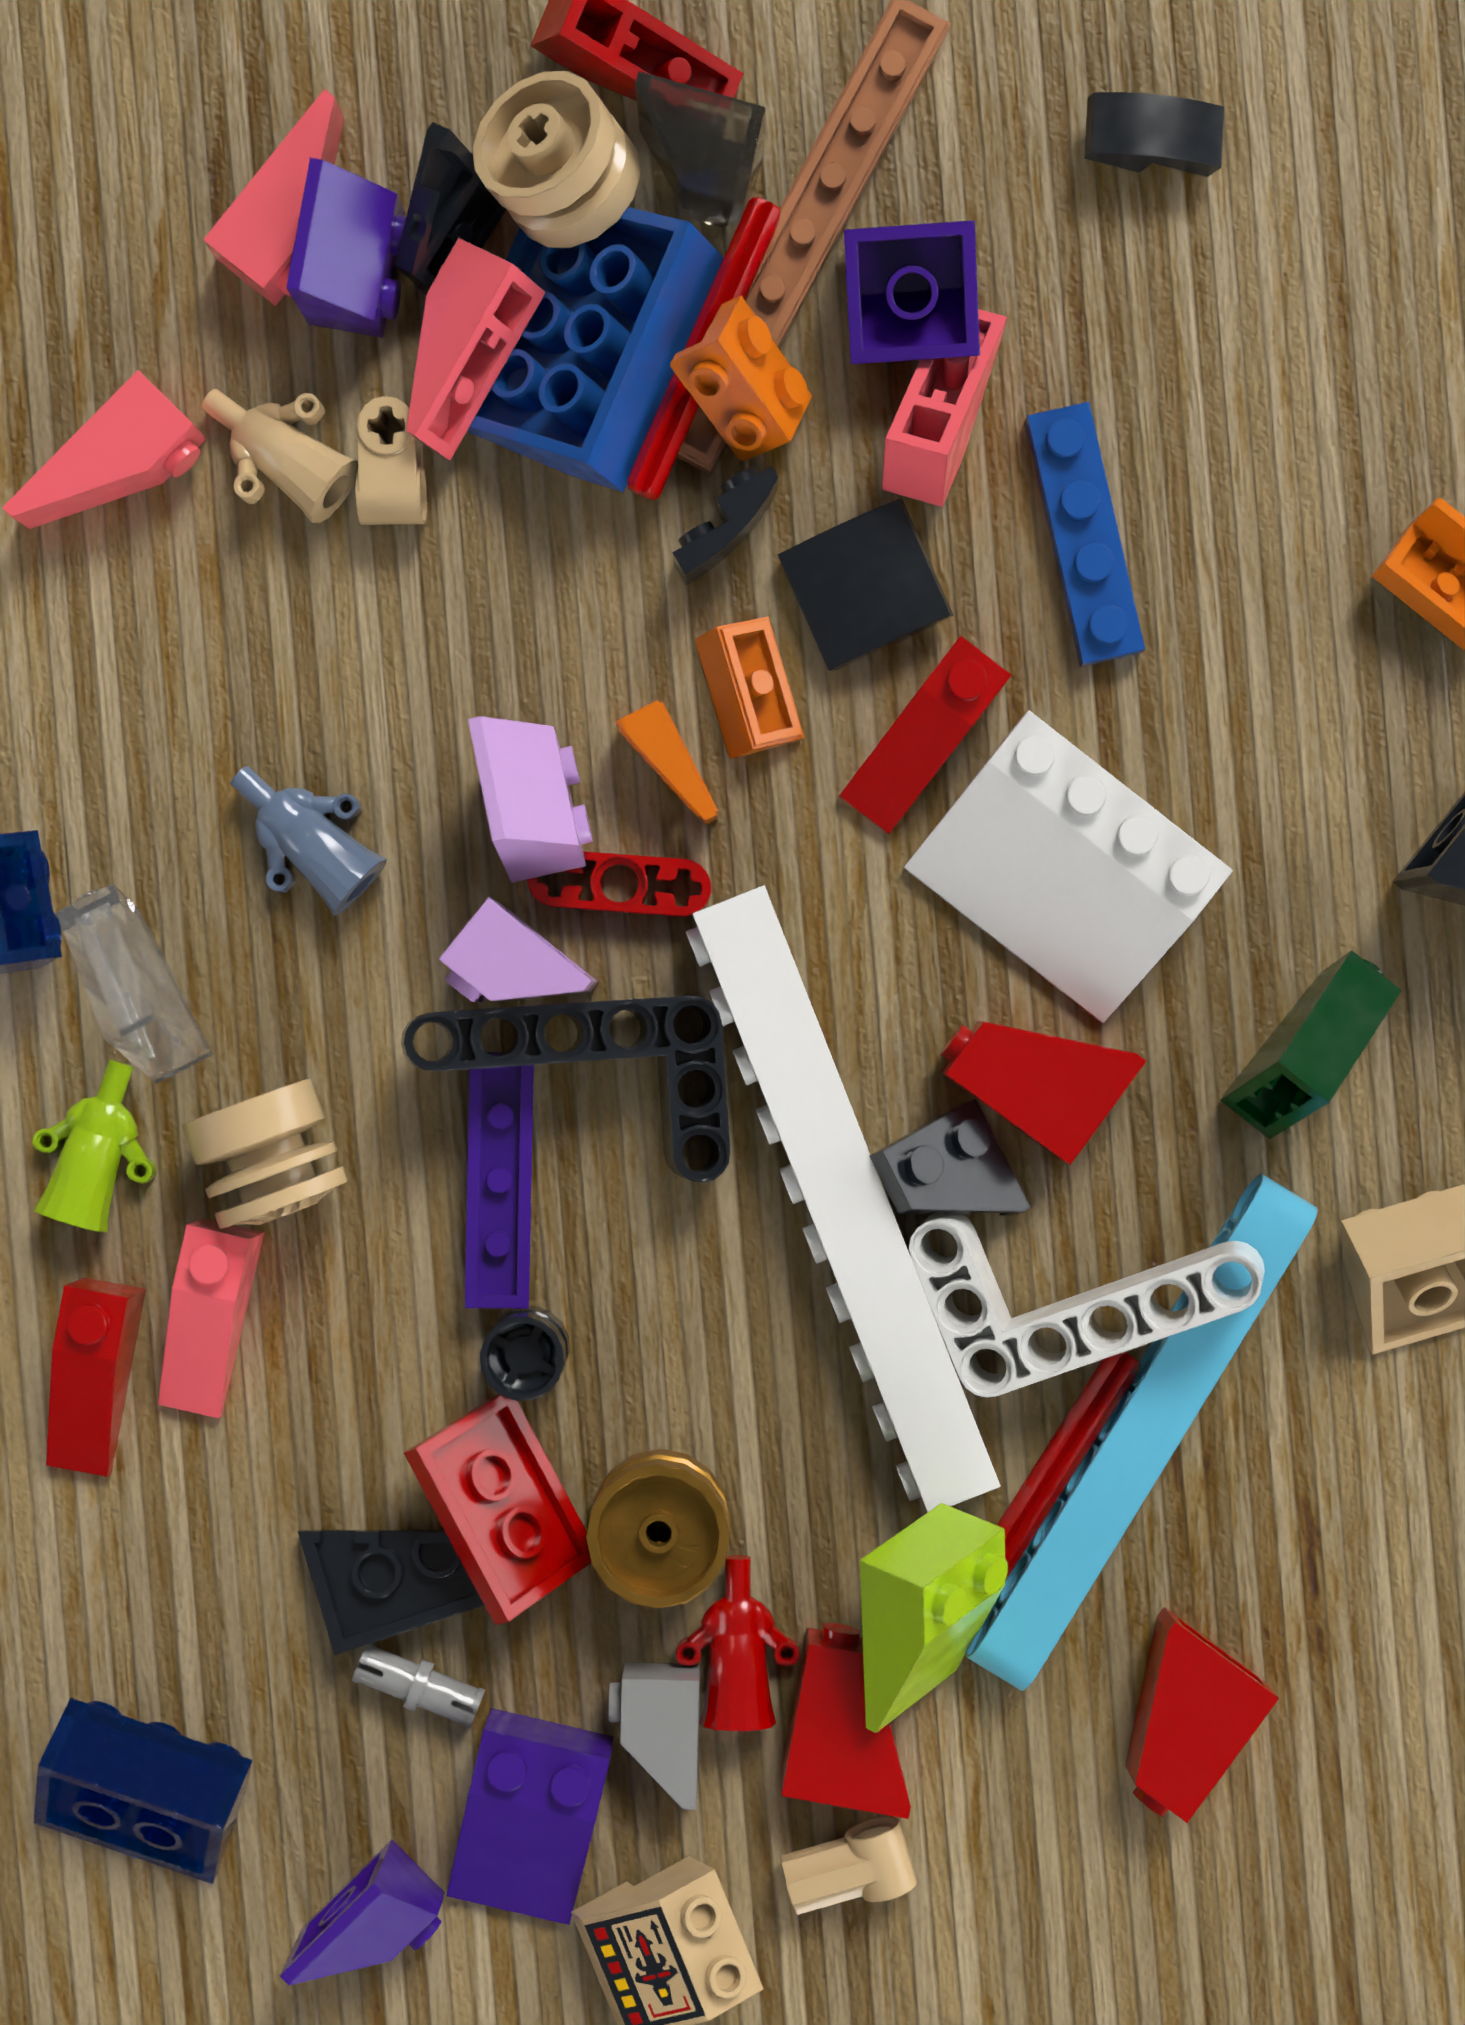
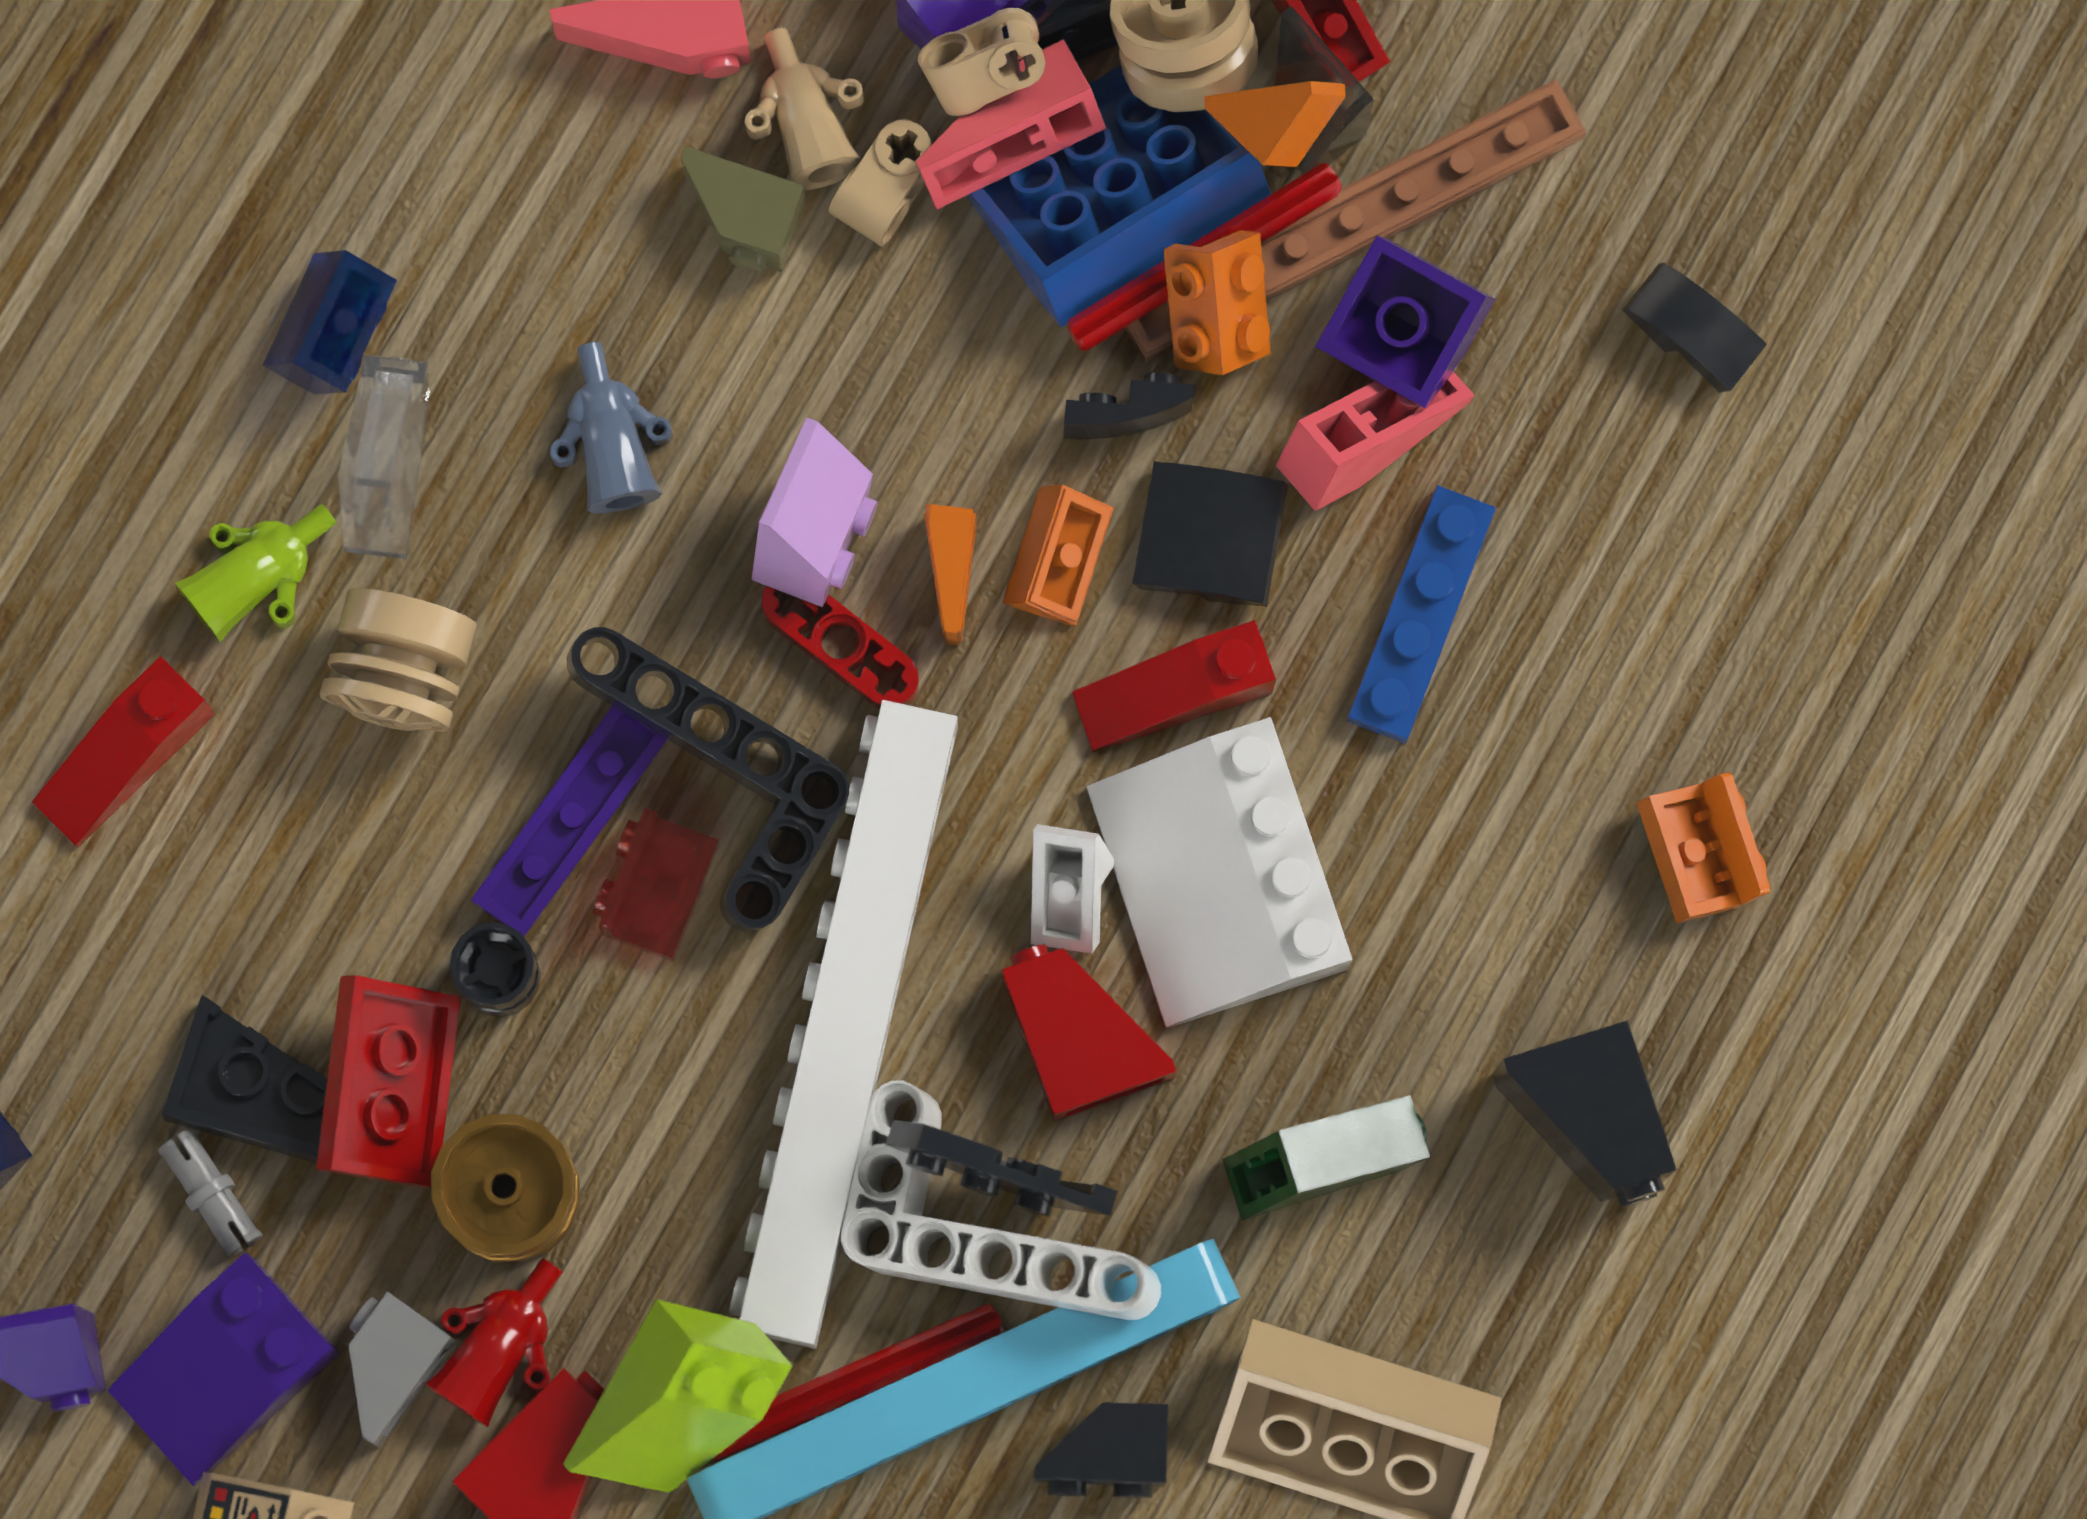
camera: 25 degrees right, 10 degrees down
(207, 1315) = (252, 766): coral slope -> none
(289, 567) = (745, 208): none -> olive slope
(403, 306) = (979, 64): none -> tan piece
(509, 961) = (705, 638): lavender slope -> none
(606, 1189) = (655, 885): none -> clear red bracket
(694, 183) = (1279, 120): none -> orange slope
(950, 1168) = (955, 1055): wing -> none
(952, 968) = (1067, 887): none -> white slope
(1053, 1248) = (983, 1171): none -> black wing
(1292, 1401) = (1113, 1447): none -> black slope

